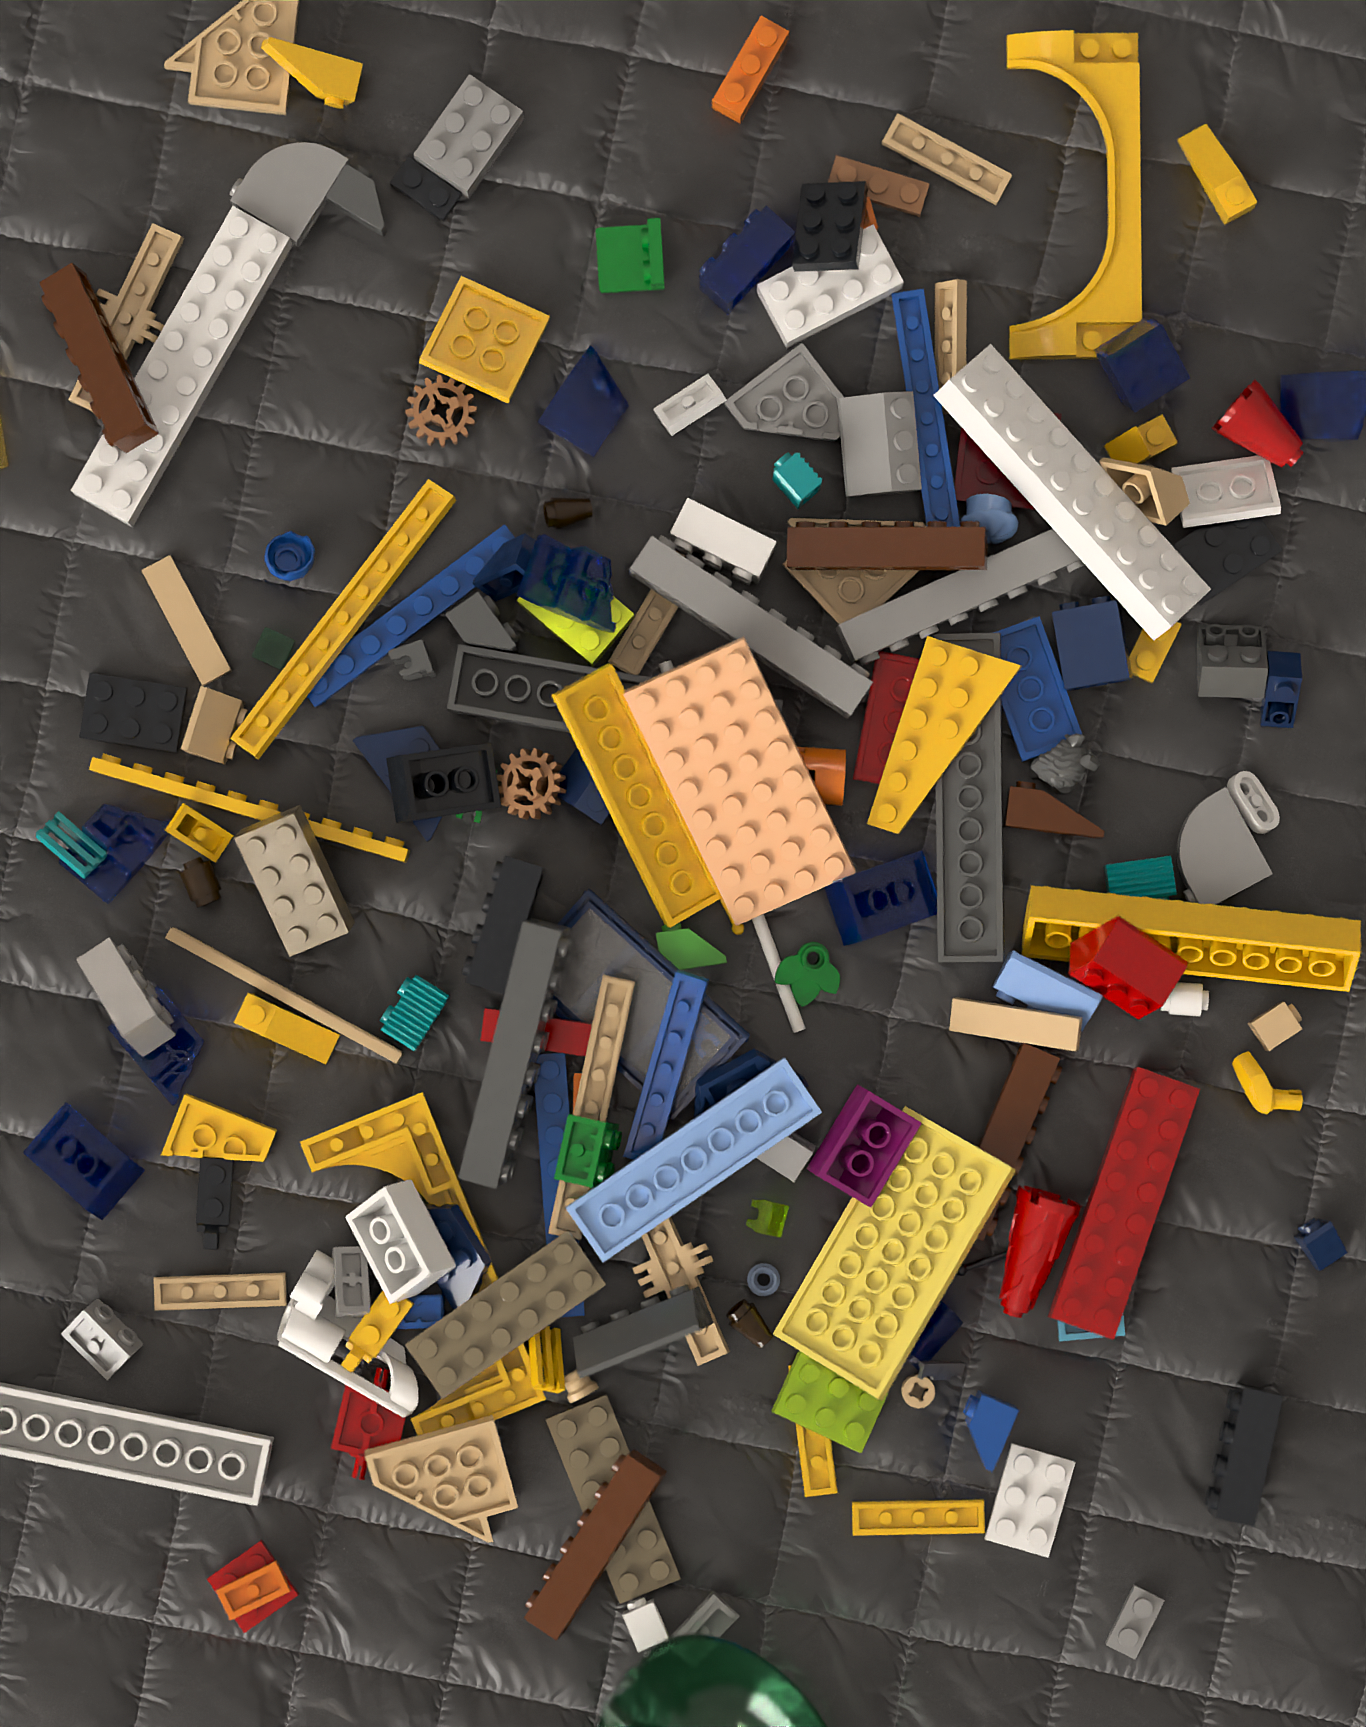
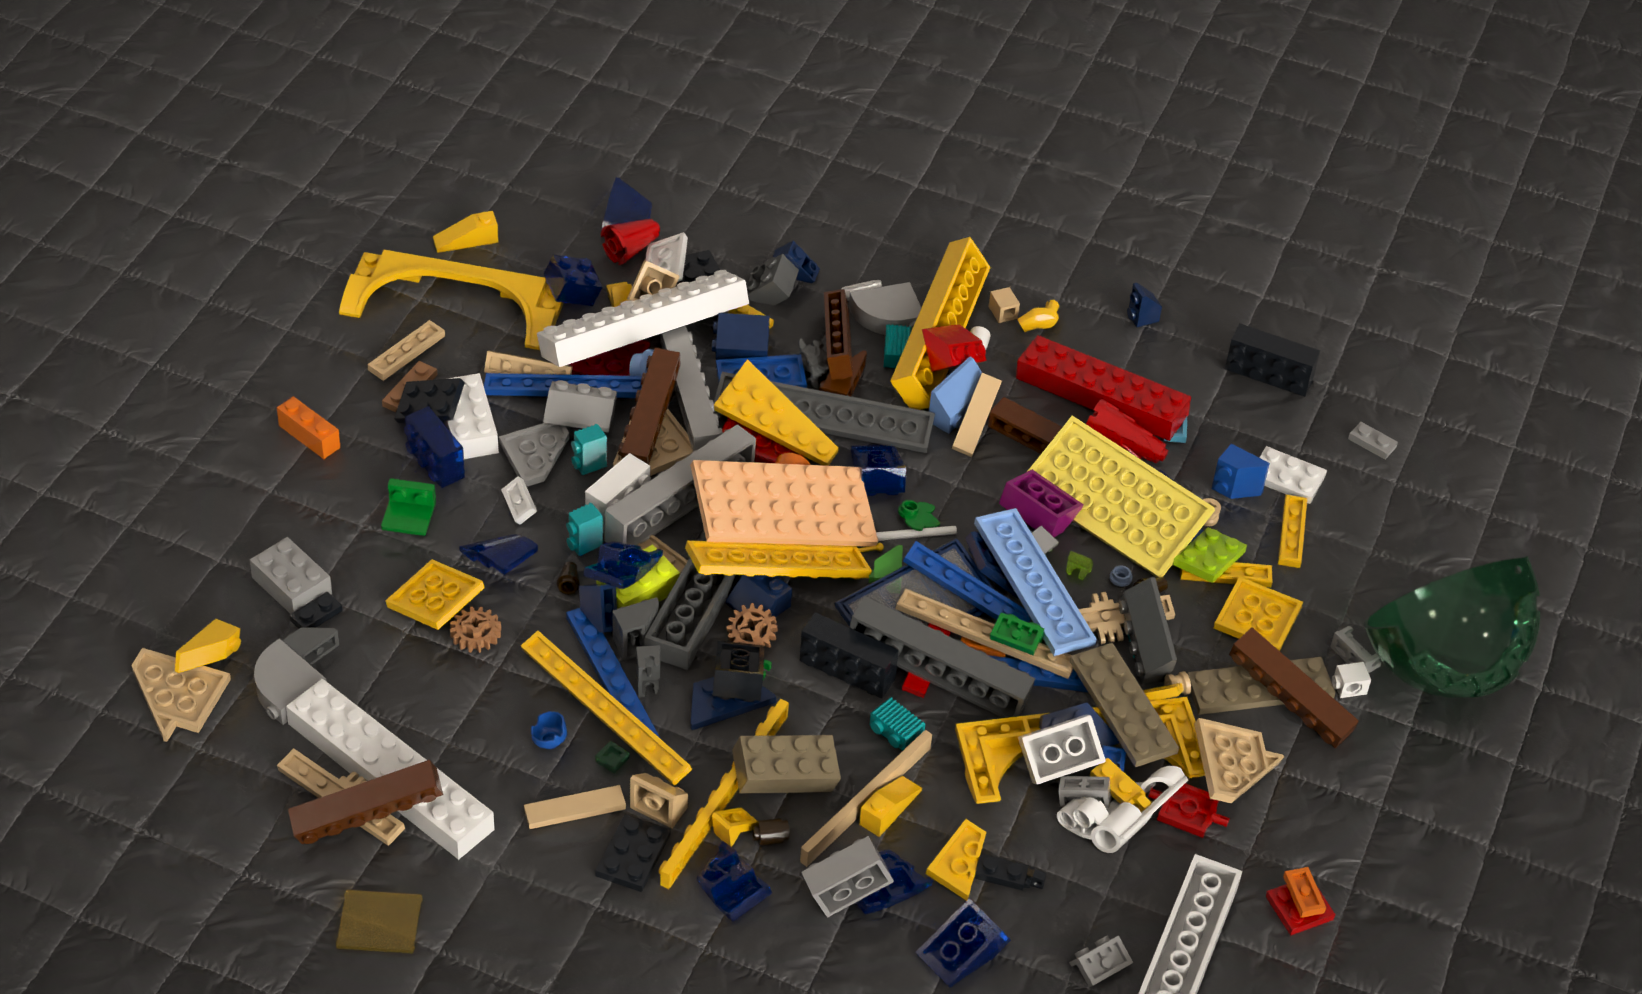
camera: 85 degrees left, 40 degrees down
(81, 837) = (721, 904): teal tile -> none
(220, 1291) = (1076, 883): tan tile -> none
(642, 512) = (585, 529): none -> teal brick
(736, 1483) = (1258, 607): none -> yellow plate
(1117, 788) = (838, 334): none -> reddish brown brick

